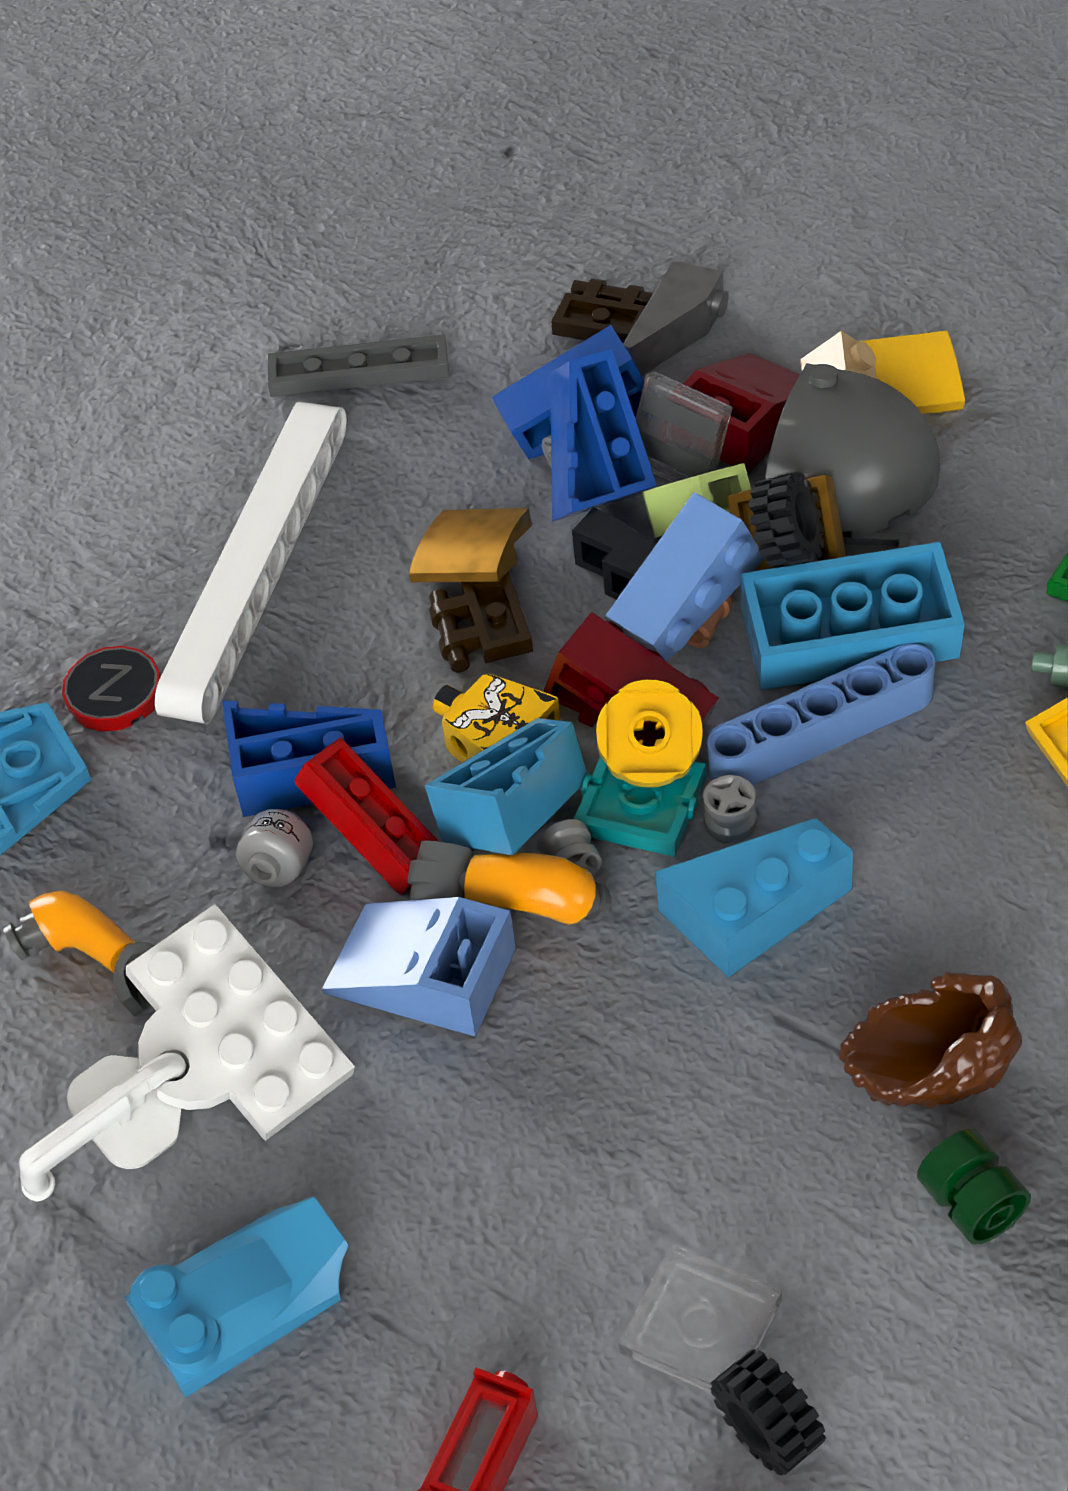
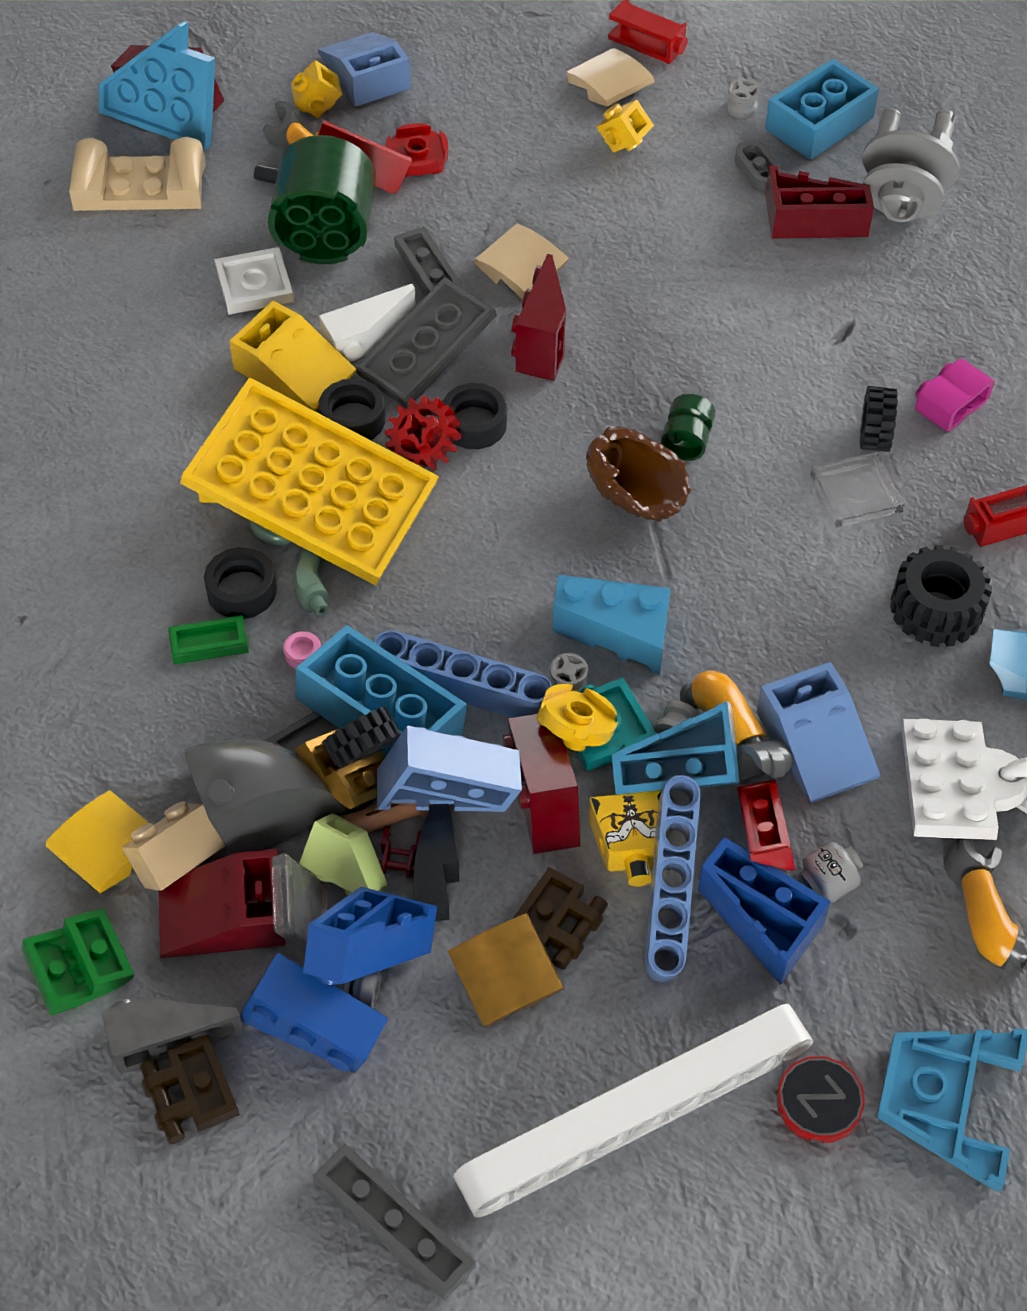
camera: 140 degrees left, 5 degrees up
(403, 690) = (681, 860): none -> medium blue beam
(439, 1192) = (944, 573): none -> black tyre
(804, 305) = (77, 961): none -> green slope
(1000, 627) = (300, 647): none -> bright pink tile

